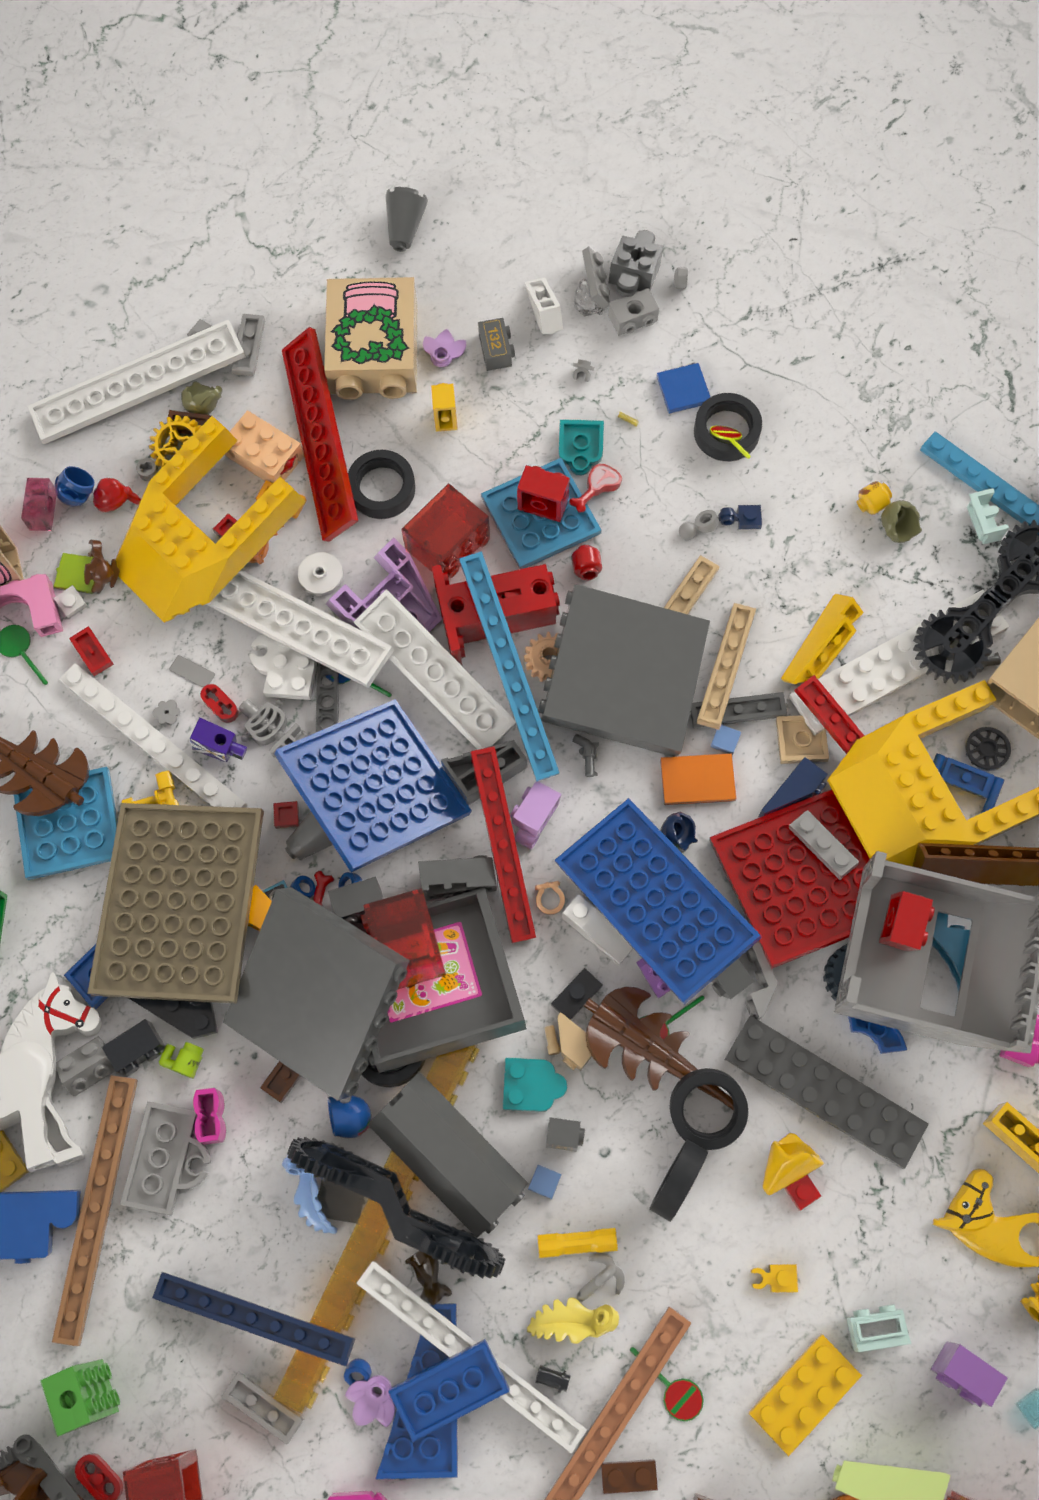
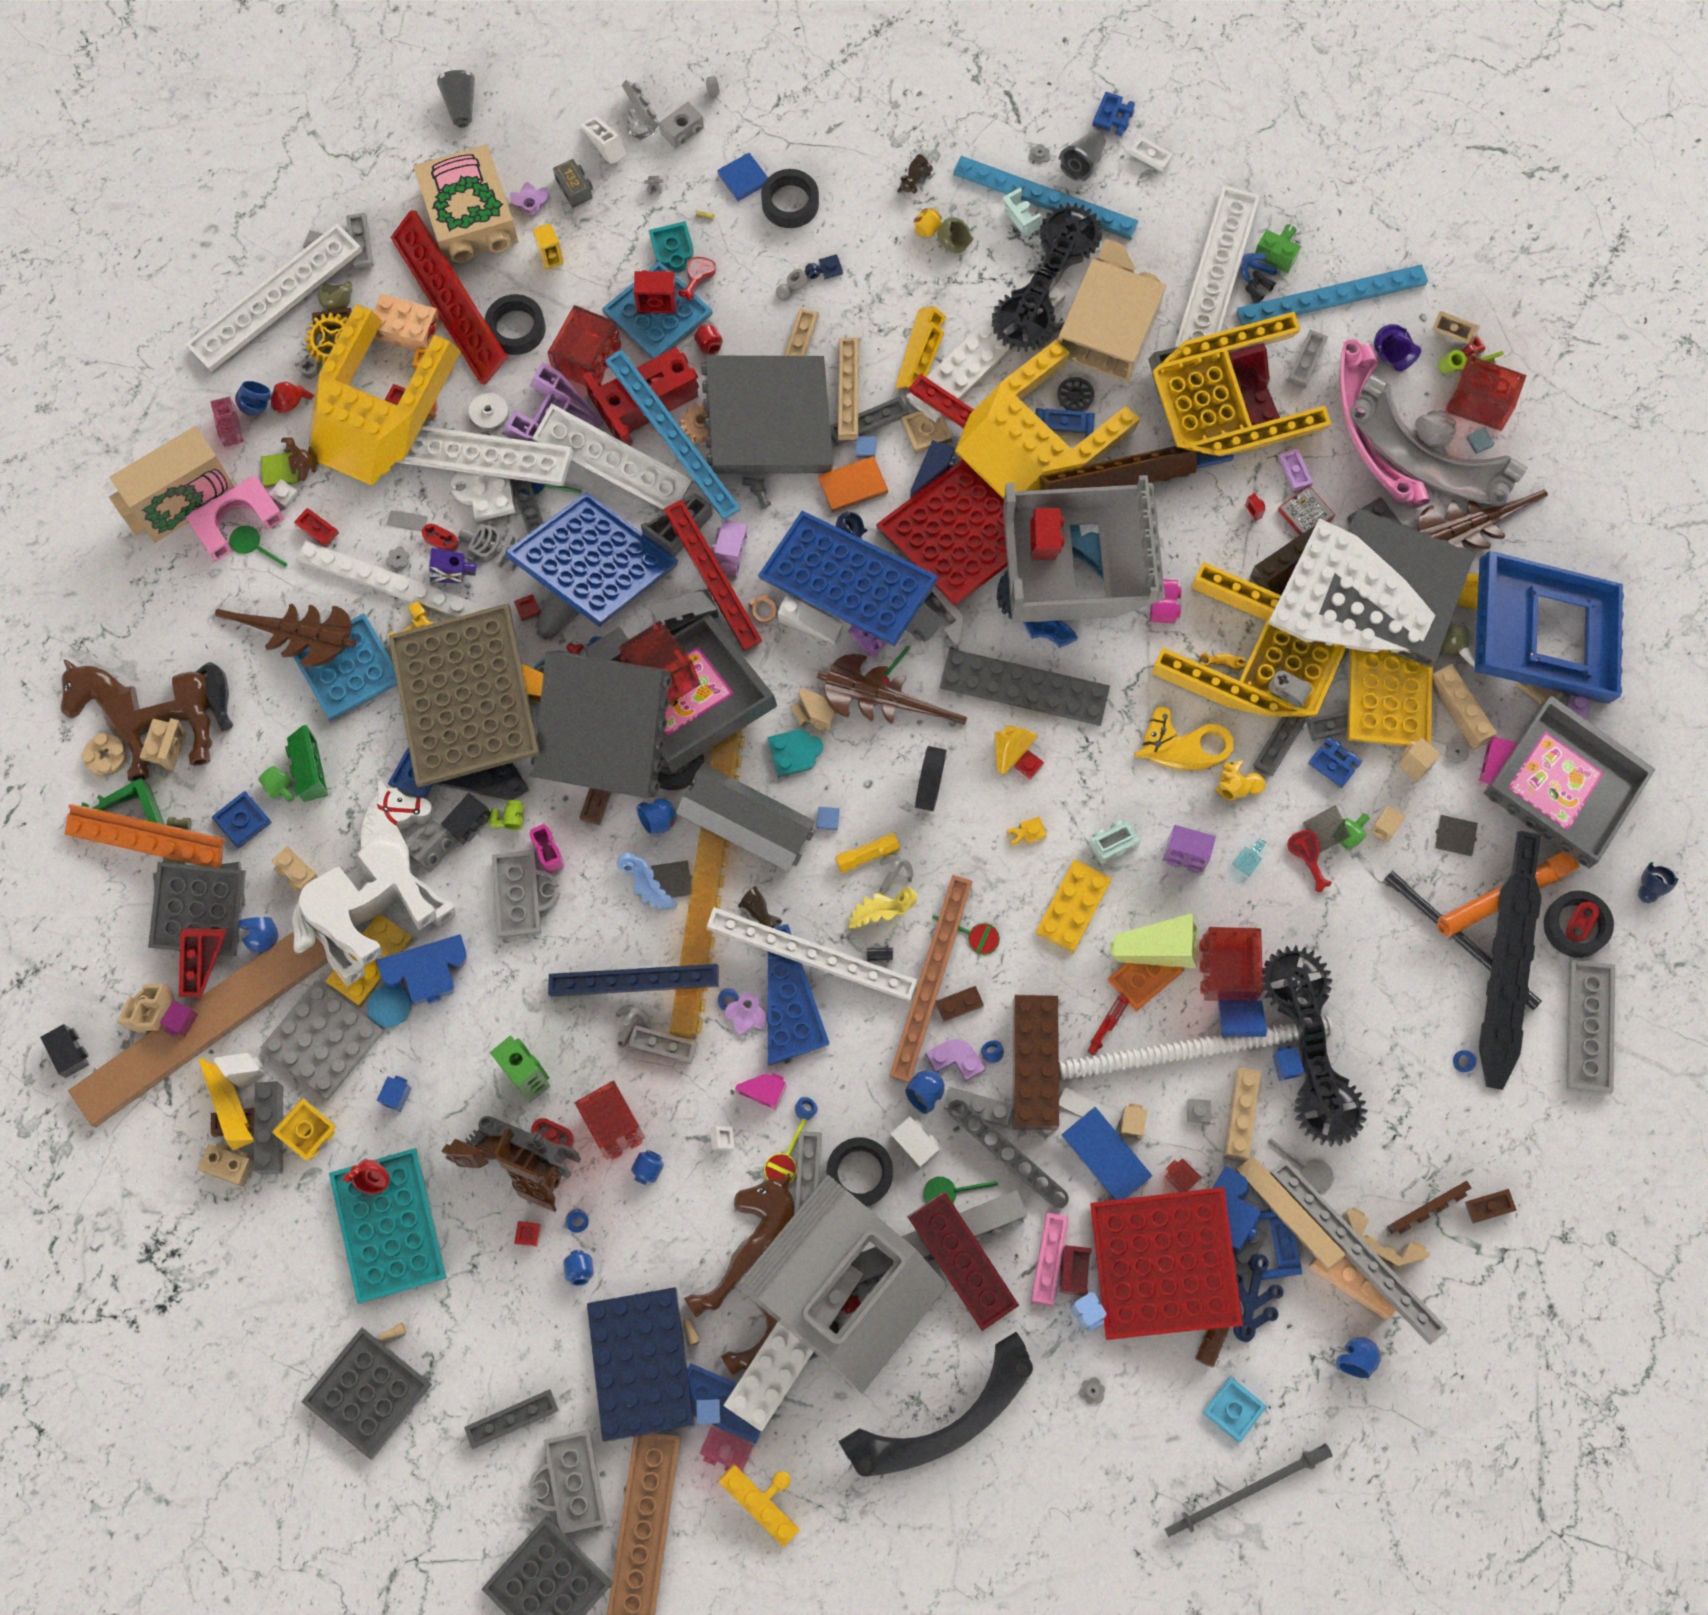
camera: 20 degrees left, 0 degrees up
(94, 1212) = (478, 946): medium nougat plate -> none
(234, 1366) = (630, 1020): none -> light grey piece
(408, 1226) = (728, 873): black beam -> none
(449, 1390) = (803, 981): blue tile -> none
(564, 1134) = (832, 775): dark grey brick -> none
(576, 994) = (807, 674): black tile -> none
(635, 263) = (670, 83): brick -> none
(729, 434) = (794, 203): piece -> none
(731, 1131) = (949, 701): black tyre -> none
(823, 845) = (967, 502): light grey plate -> none
(880, 433) = (917, 170): none -> dark brown animal
(1025, 453) = (1039, 154): none -> light grey plant

